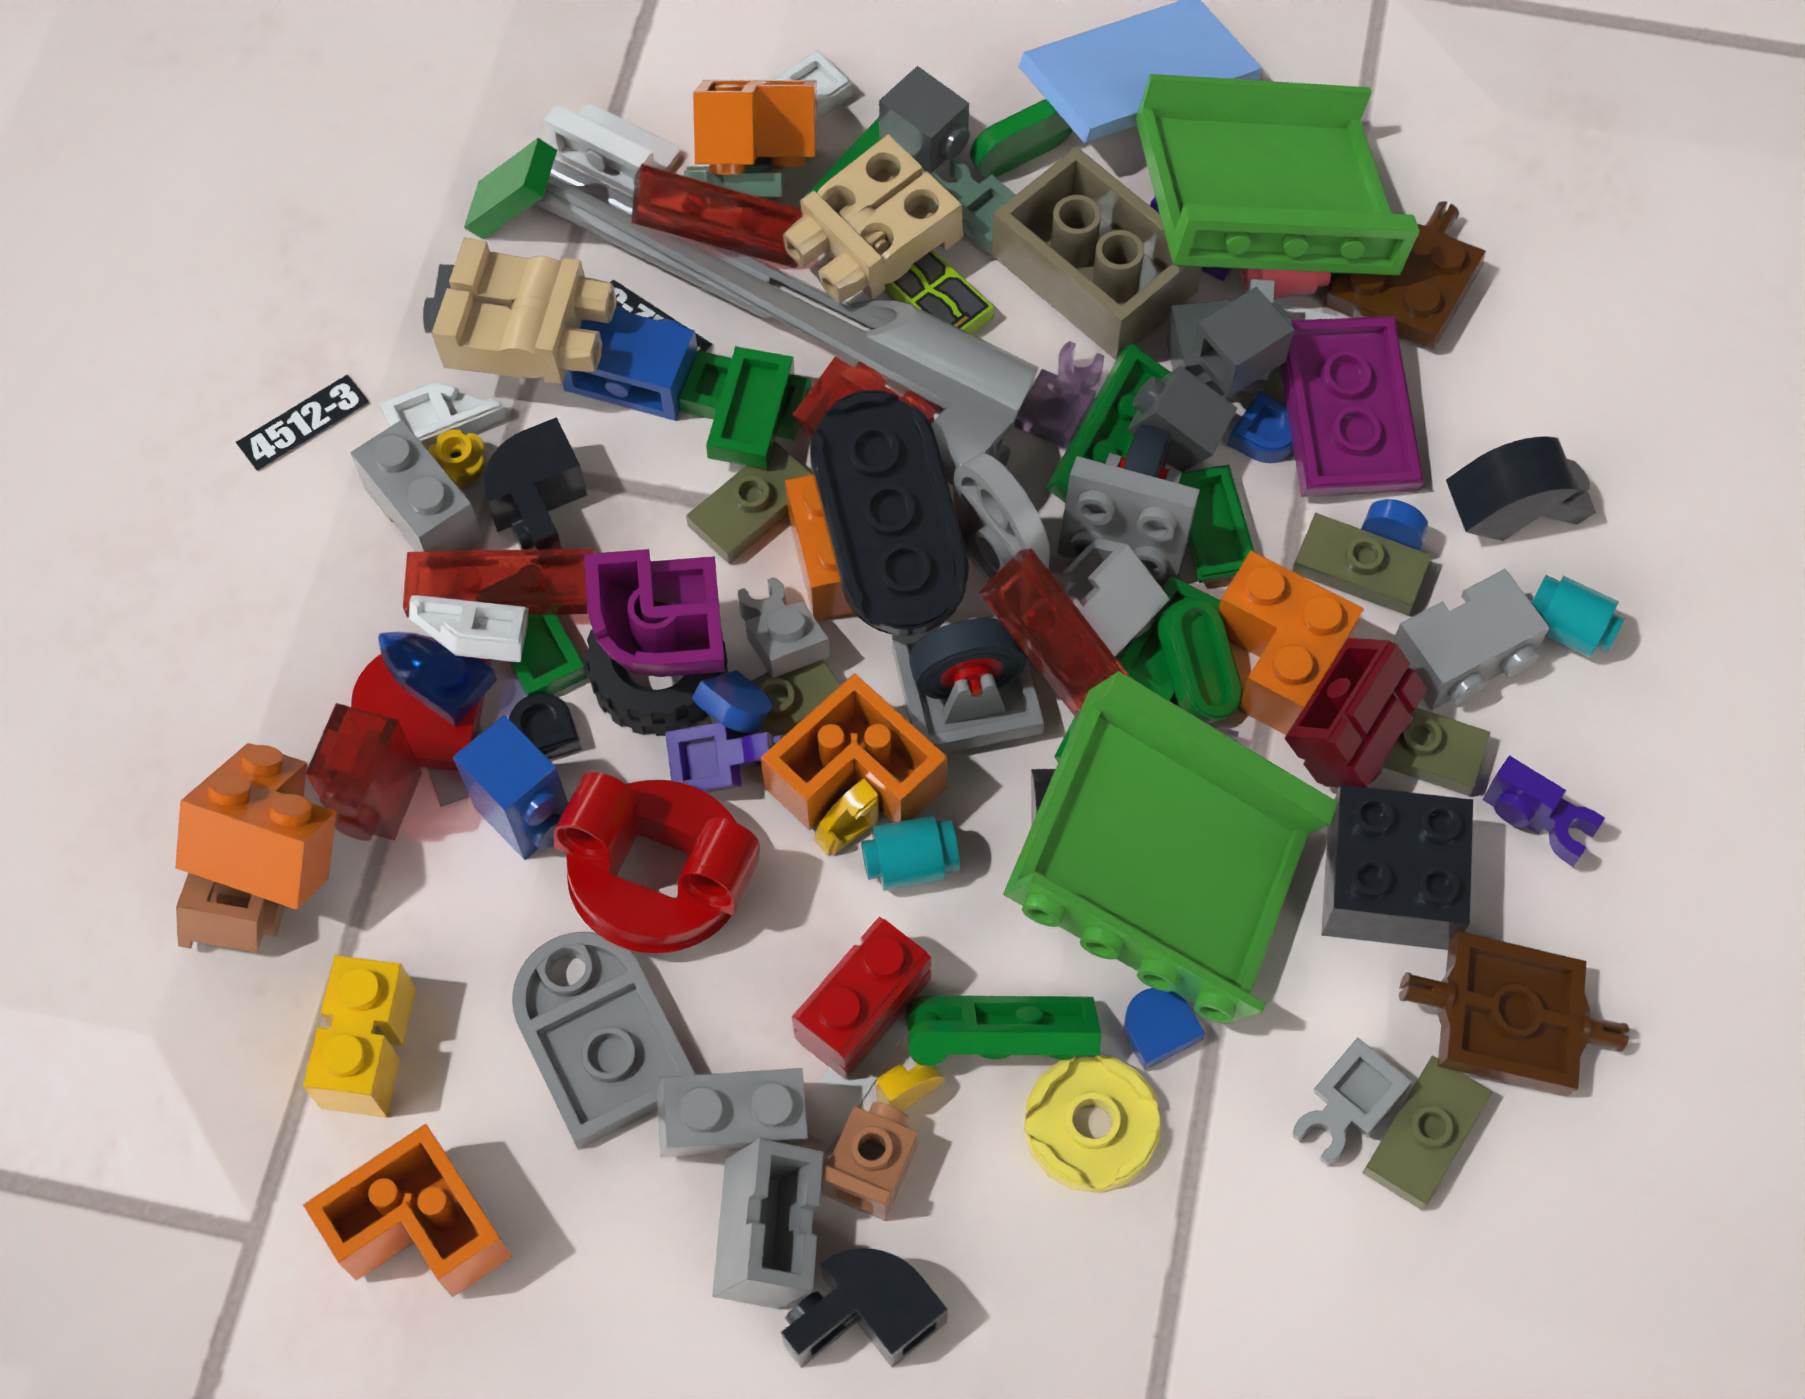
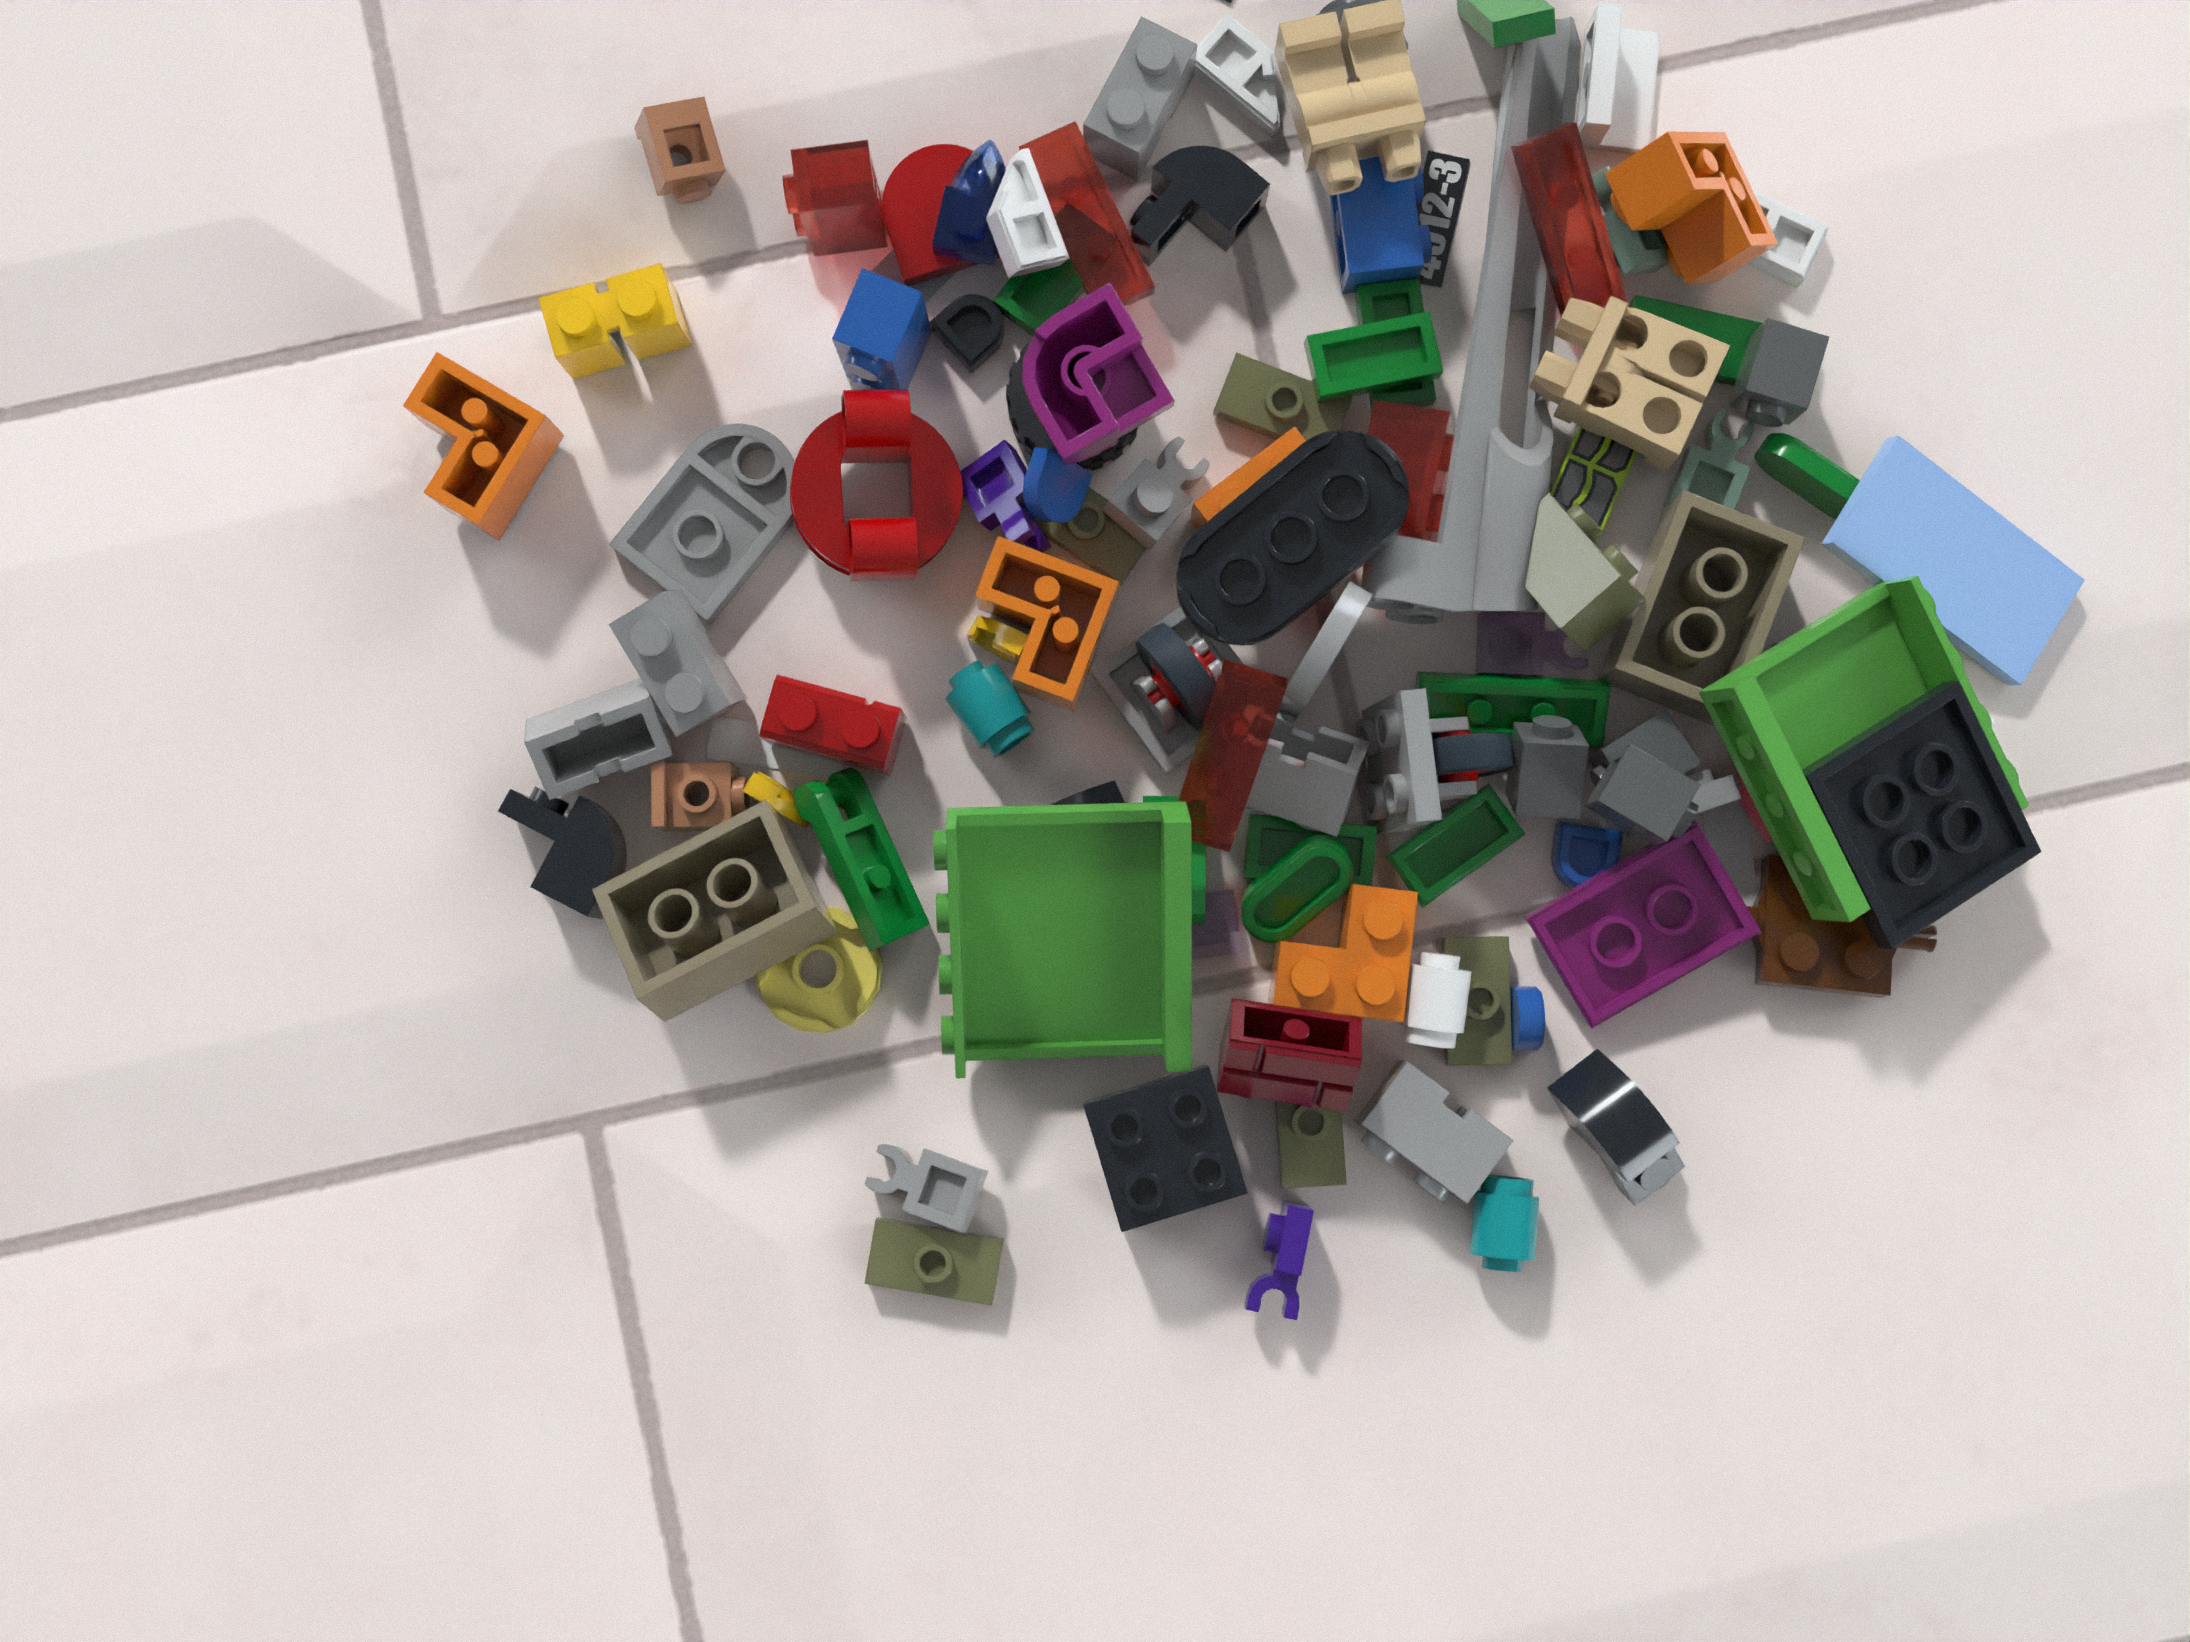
camera: 65 degrees right, 20 degrees up
(257, 828) = (739, 132): orange brick -> none
(468, 466) = (1204, 129): yellow plate -> none
(998, 1177) = (713, 911): none -> dark tan brick
(1028, 320) = (1575, 578): none -> slope
(1160, 1026) = (920, 996): blue tile -> none
(1345, 153) = (1921, 813): none -> black plate
(1355, 579) = (1436, 1001): none -> white brick
(1513, 1013) = (1069, 1299): reddish brown plate -> none

